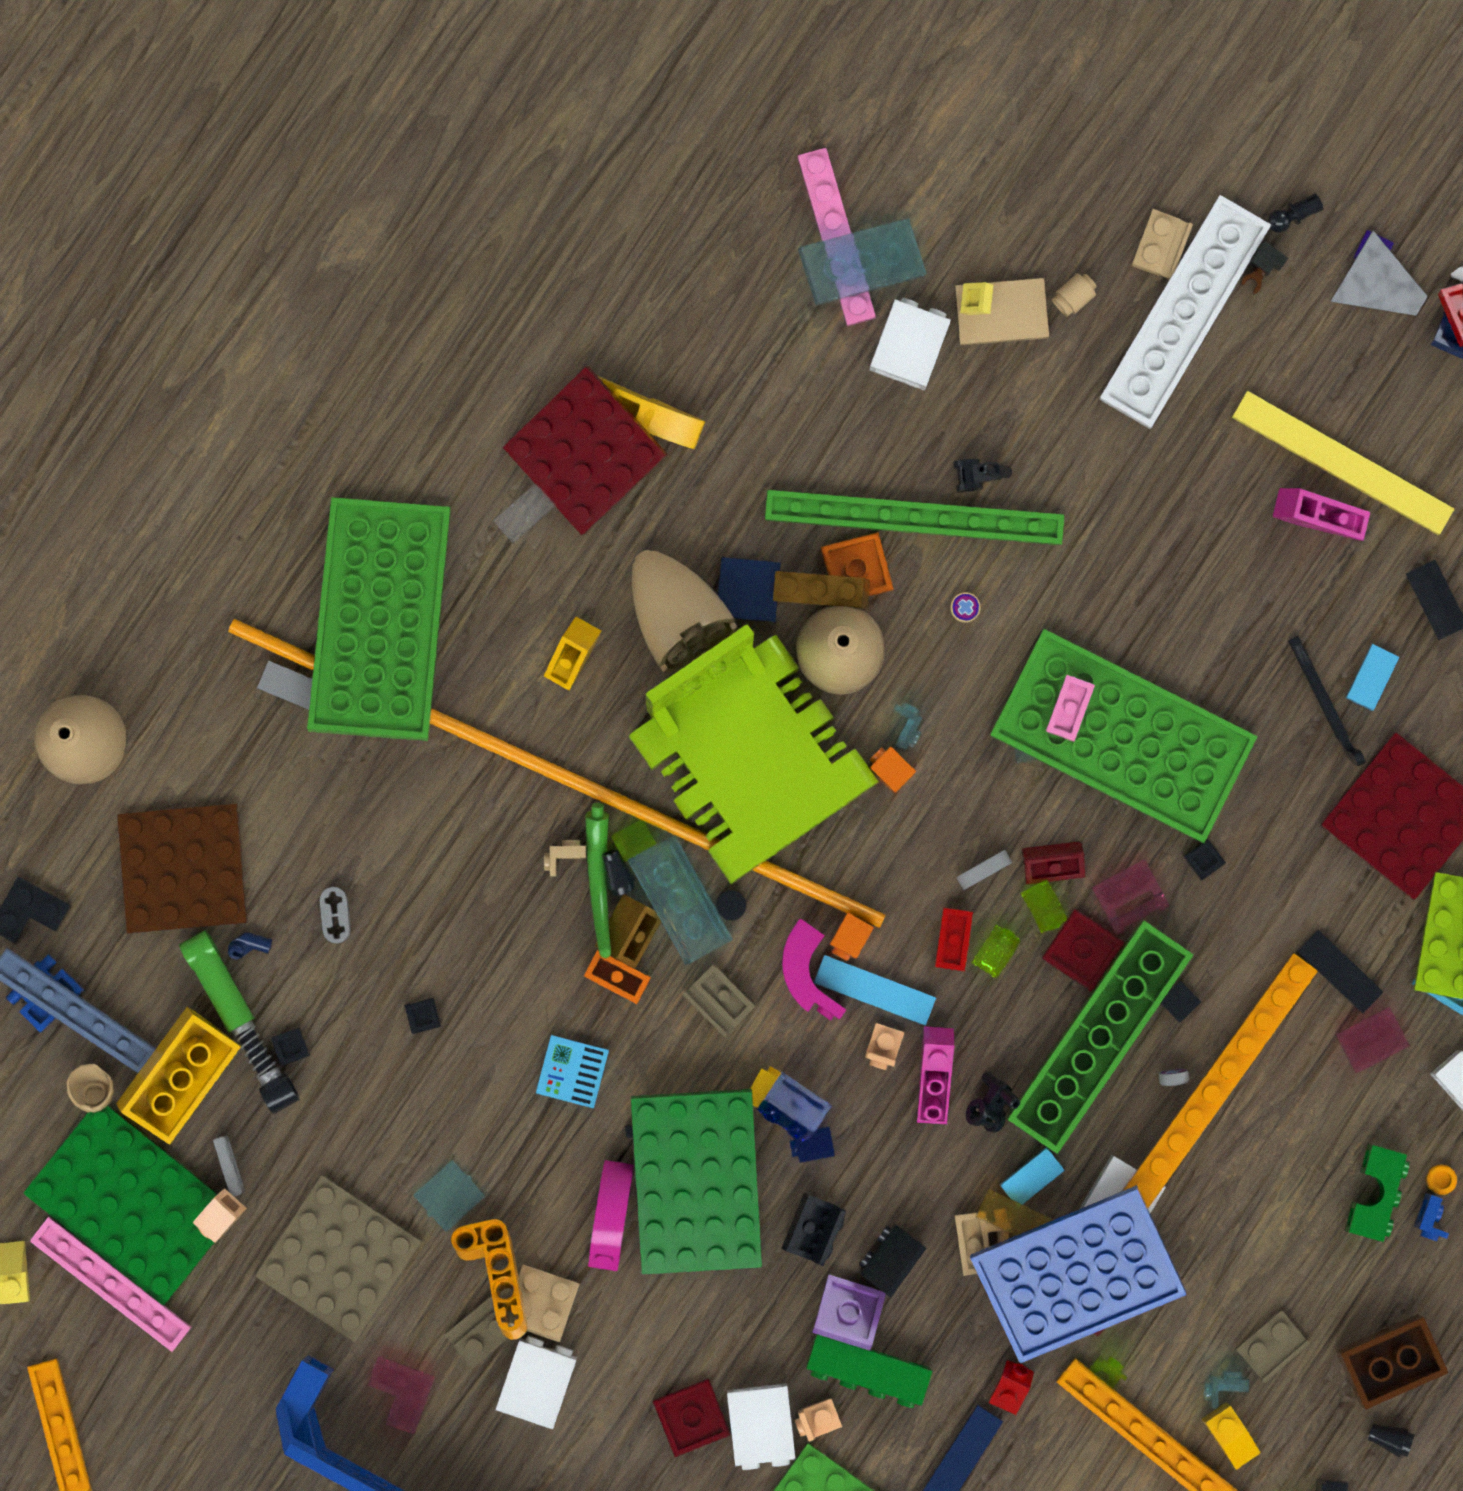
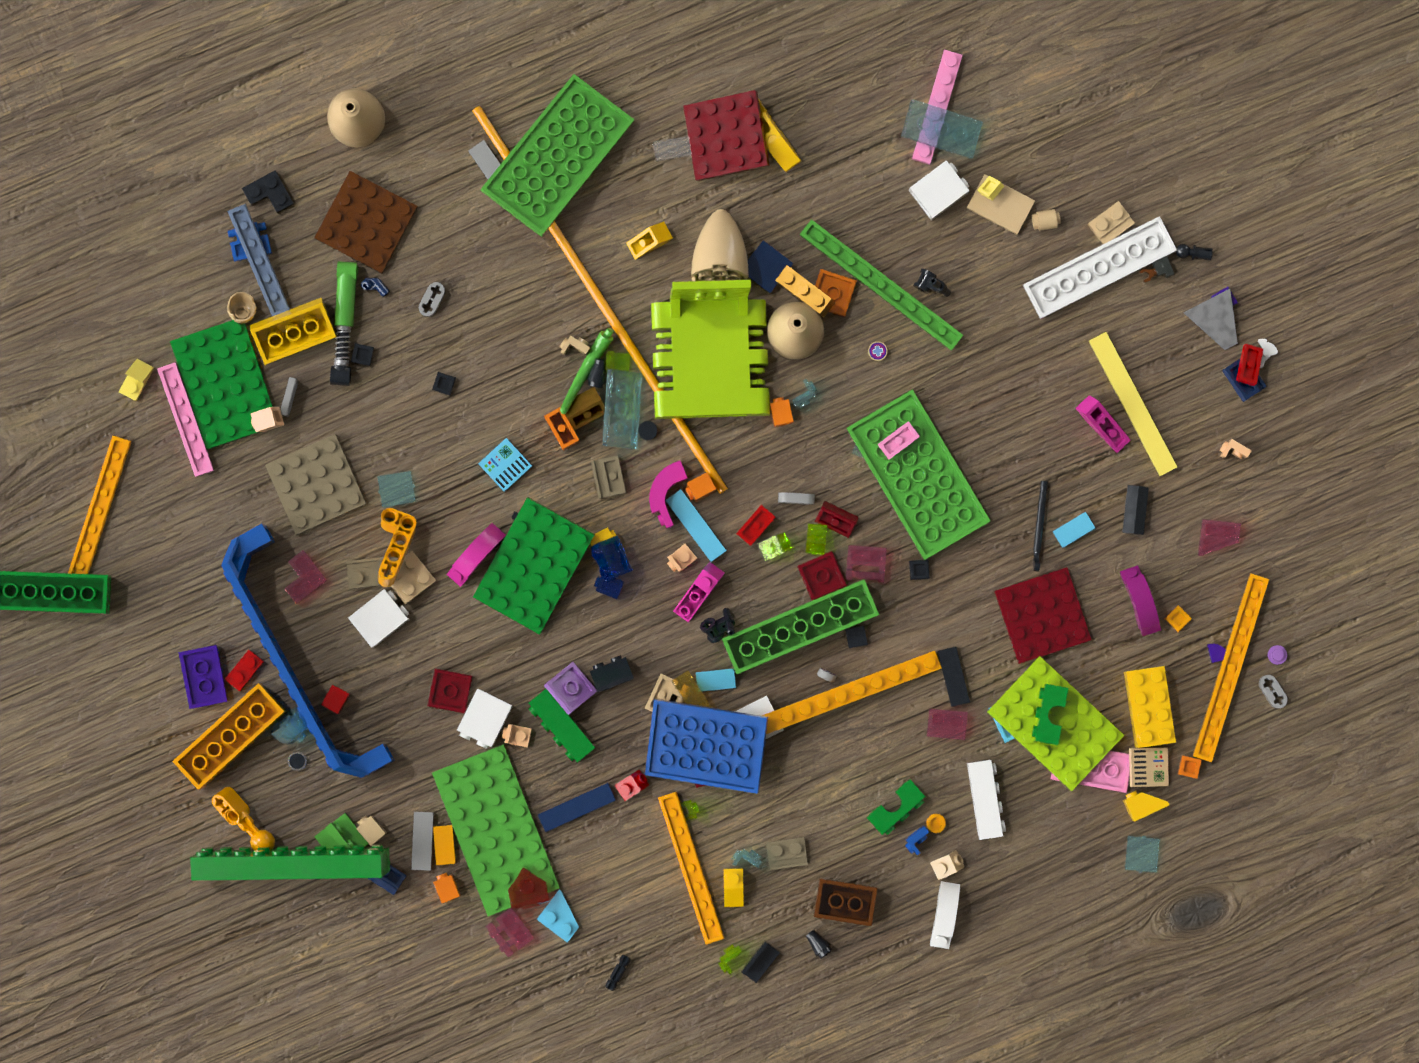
camera: 30 degrees right, 0 degrees up
(814, 1229) = (580, 632): black bracket -> none

